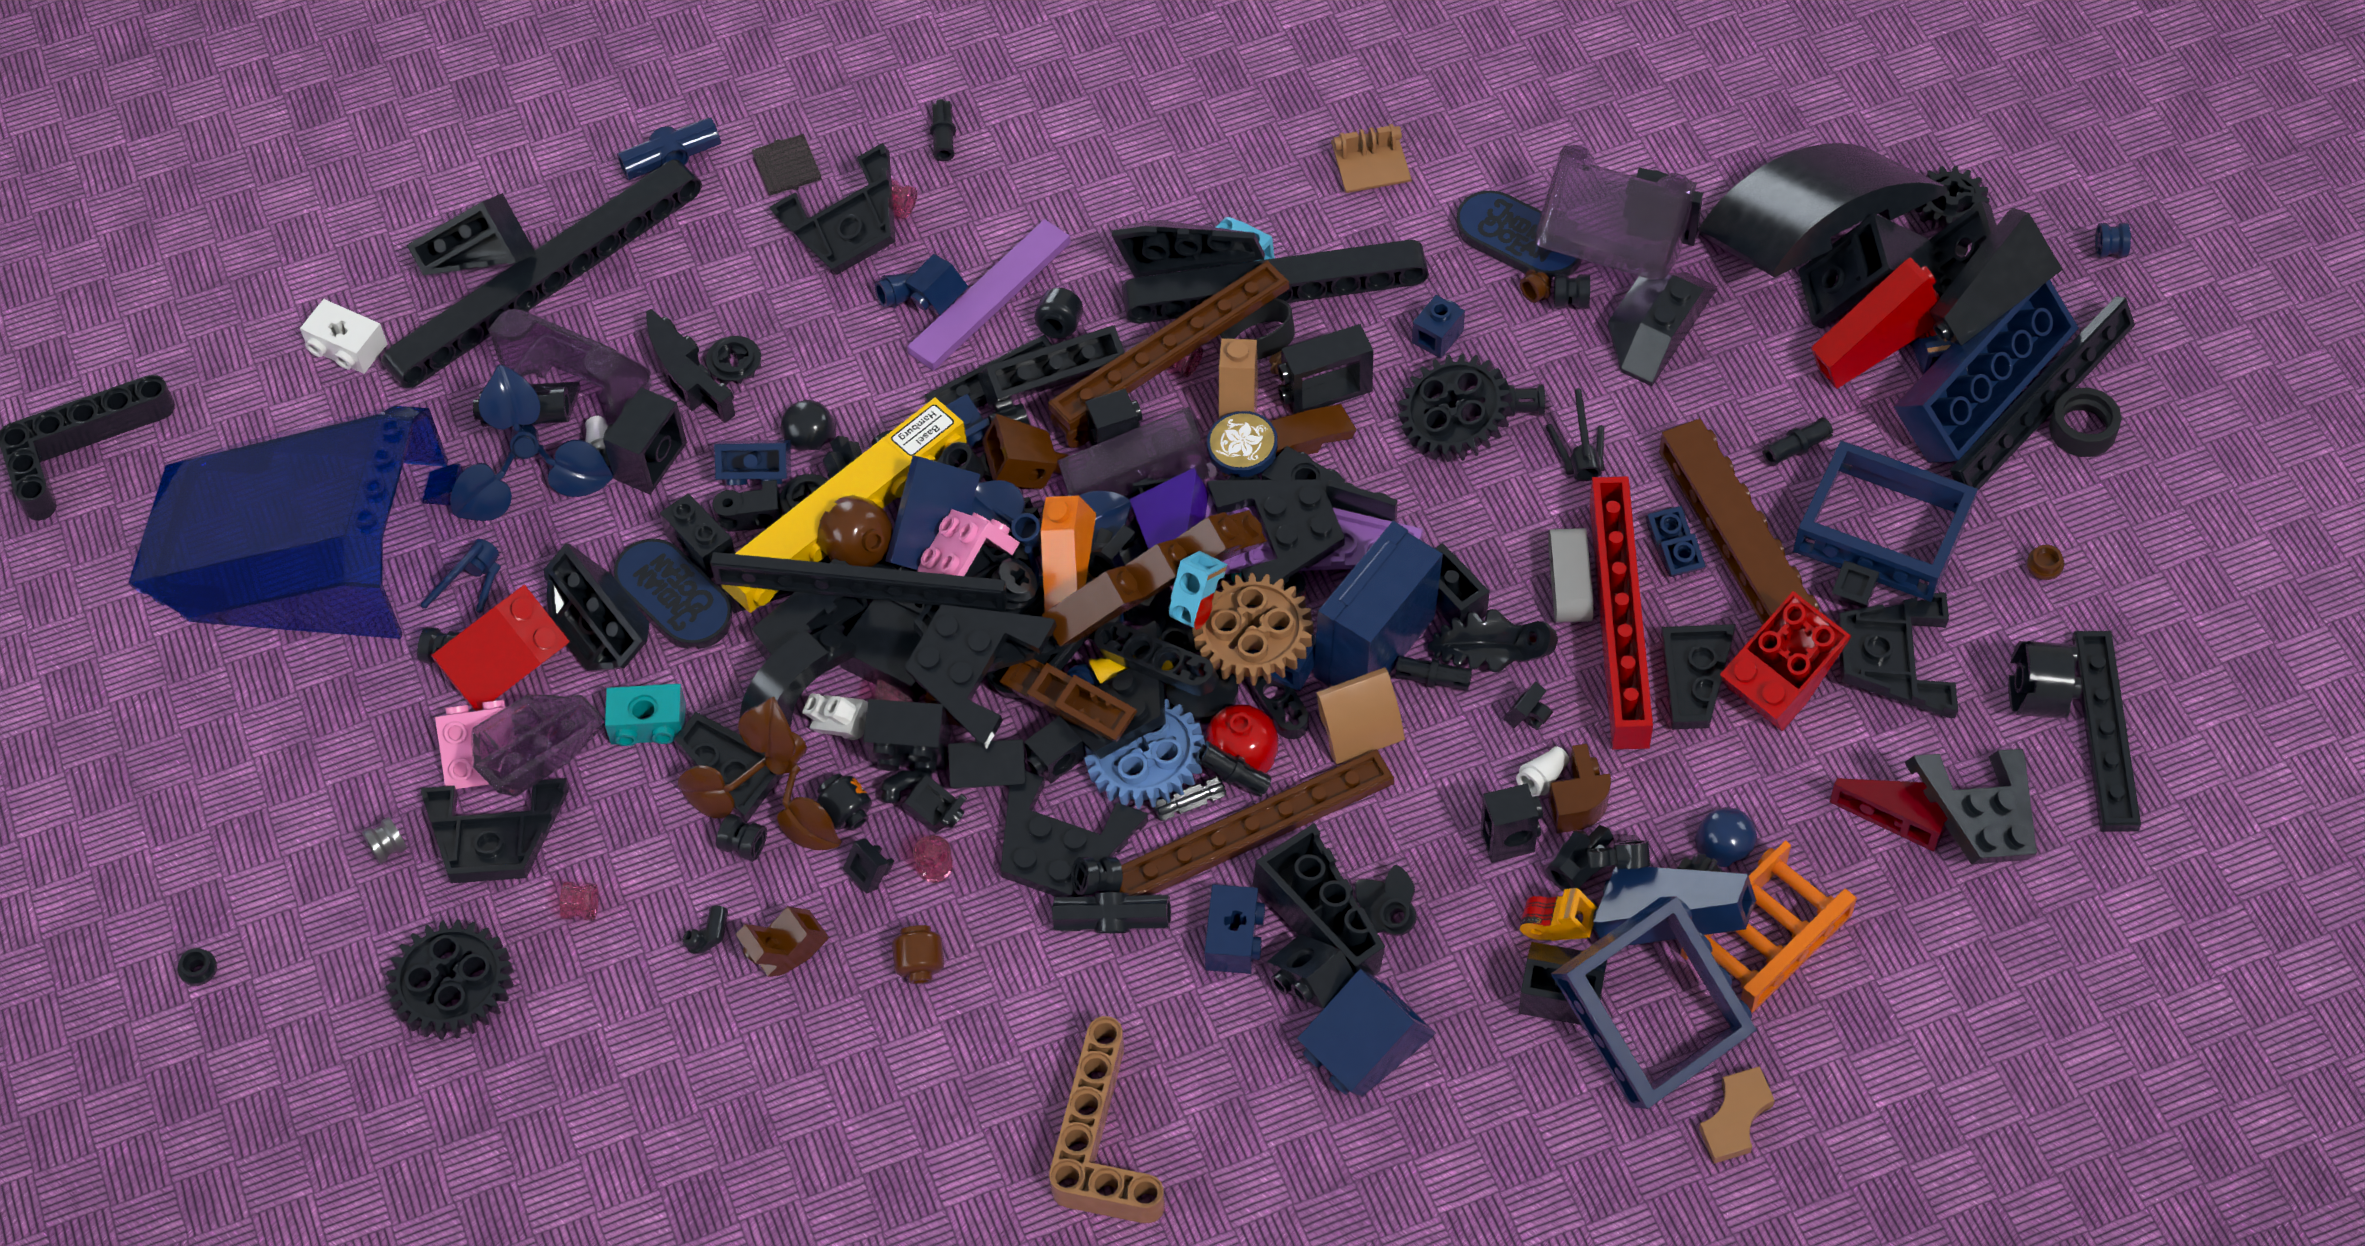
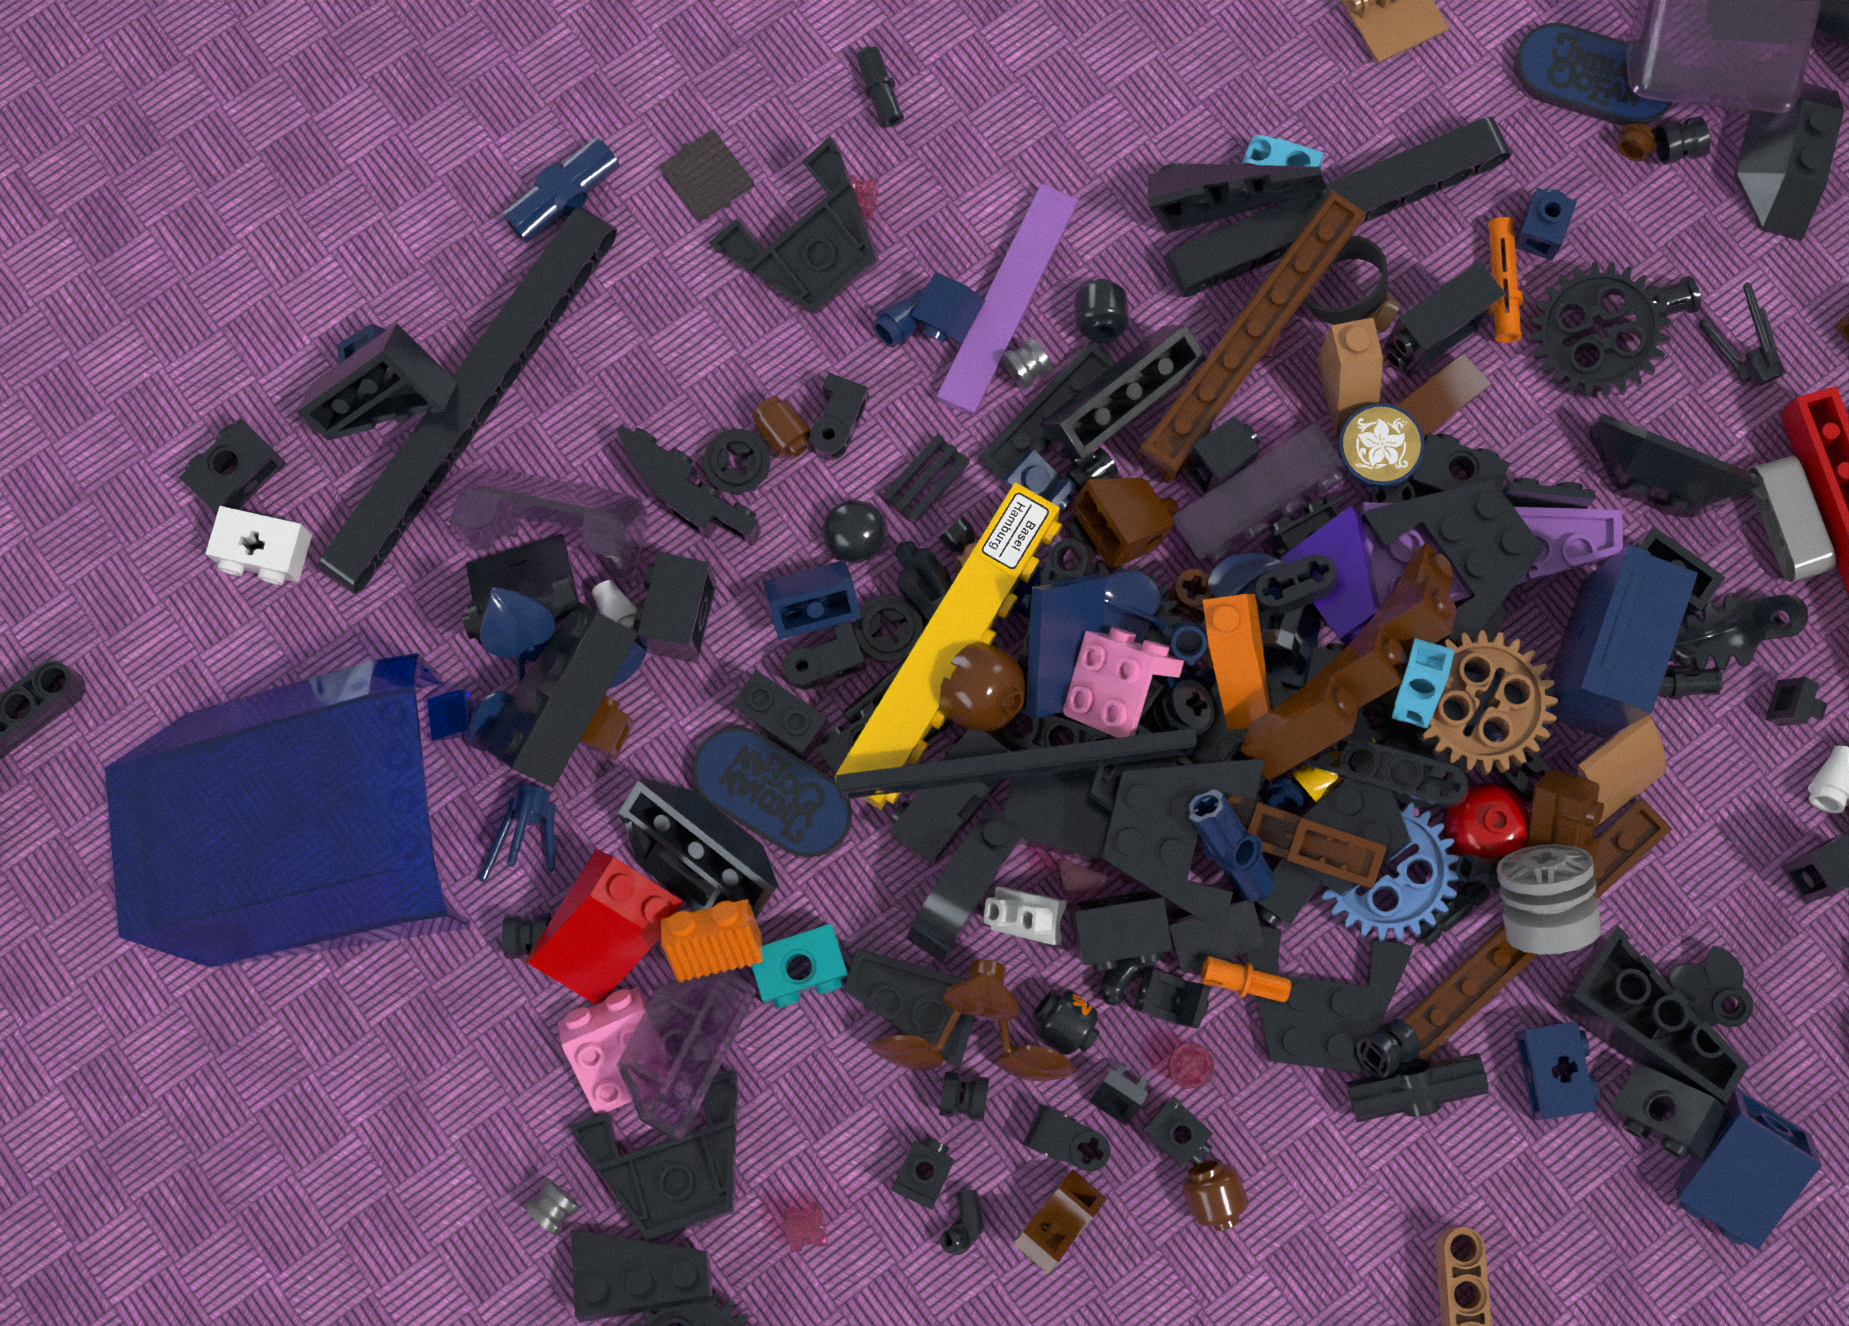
camera: 15 degrees left, 20 degrees up
(346, 279) = (255, 467): none -> black brick
(429, 900) = (634, 1276): none -> black wing
(529, 470) = (559, 695): none -> black wedge
(554, 514) = (607, 729): none -> reddish brown brick
(580, 666) = (711, 940): none -> orange brick
(688, 886) = (918, 1190): none -> black brick
(776, 341) = (782, 427): none -> reddish brown brick
(813, 889) = (1059, 1138): none -> black piece
(825, 344) = (836, 428): none -> black leg
(874, 400) = (911, 471): none -> black tile
(903, 900) = (1161, 1130): none -> black brick
(986, 337) = (1027, 363): none -> flat silver wheel
(997, 800) = (1244, 979): none -> orange axle
(1018, 702) = (1231, 846): none -> dark blue piece
(1130, 512) = (1296, 584): none -> black beam
(1258, 781) = (1549, 899): none -> light grey wheel
(1294, 739) = (1565, 811): none -> reddish brown brick
(1390, 370) = (1502, 235): none -> orange pin
(1482, 518) = (1667, 471): none -> black wedge

